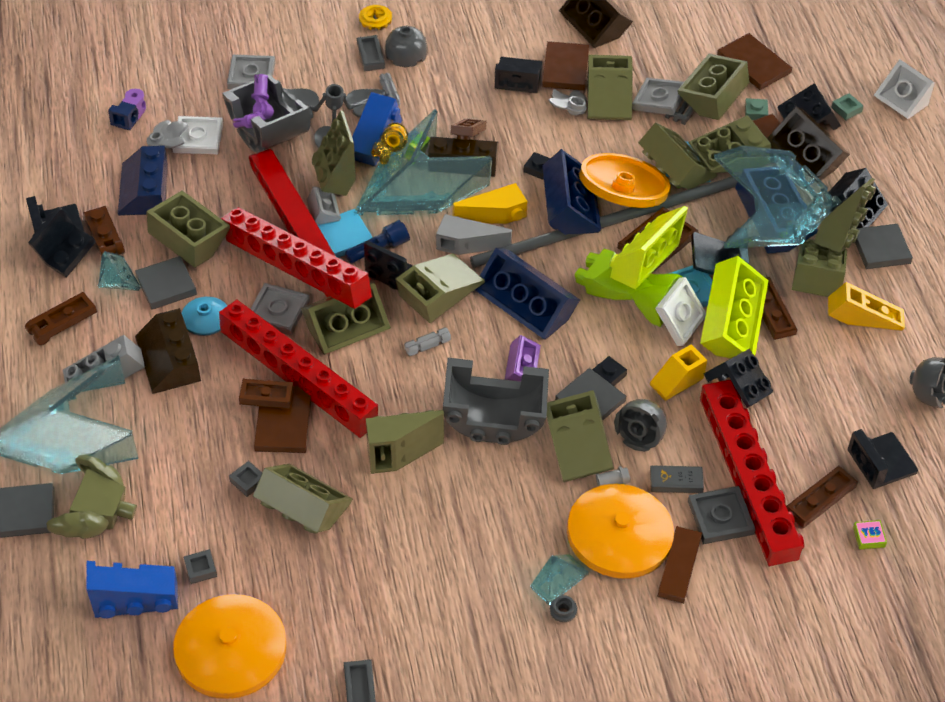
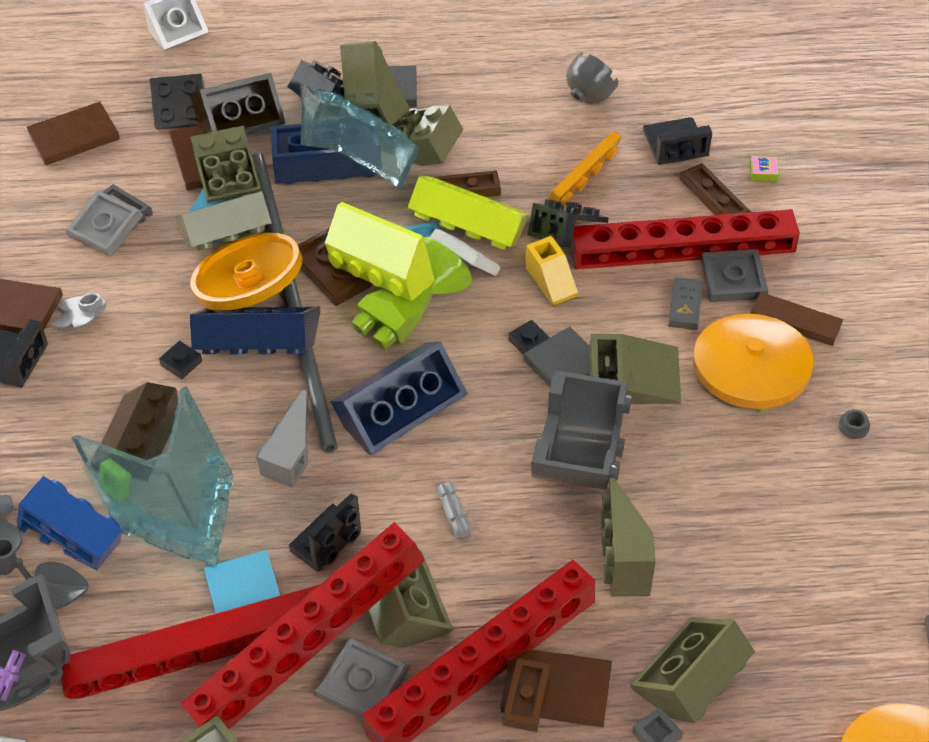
camera: 80 degrees left, 0 degrees up
(323, 206) = (187, 604): light grey slope -> none
(336, 158) = (124, 561): olive slope -> none
(392, 140) = (111, 494): clear yellow piece -> none
(392, 236) = (270, 529): dark blue piece -> none
(437, 285) = (378, 478): olive slope -> none
(468, 128) = (108, 411): reddish brown plate -> none
(495, 206) = (248, 407): yellow slope -> none
(521, 353) = (499, 419): medium lavender slope -> none
(558, 577) = (811, 426): clear light blue slope -> none
(609, 87) = (76, 263): olive slope -> none
(618, 476) = (686, 359): light grey pin -> none
(641, 424) = (620, 310): dark grey cylinder -> none
(709, 251) = (385, 199): black bracket -> none
(715, 85) = (113, 164): olive slope -> none
(756, 108) = (153, 145): sand green plate -> none
(821, 393) = (591, 165): none -> light orange plate
(847, 106) = (179, 66): sand green plate -> none
(861, 308) = (481, 114): yellow slope -> none

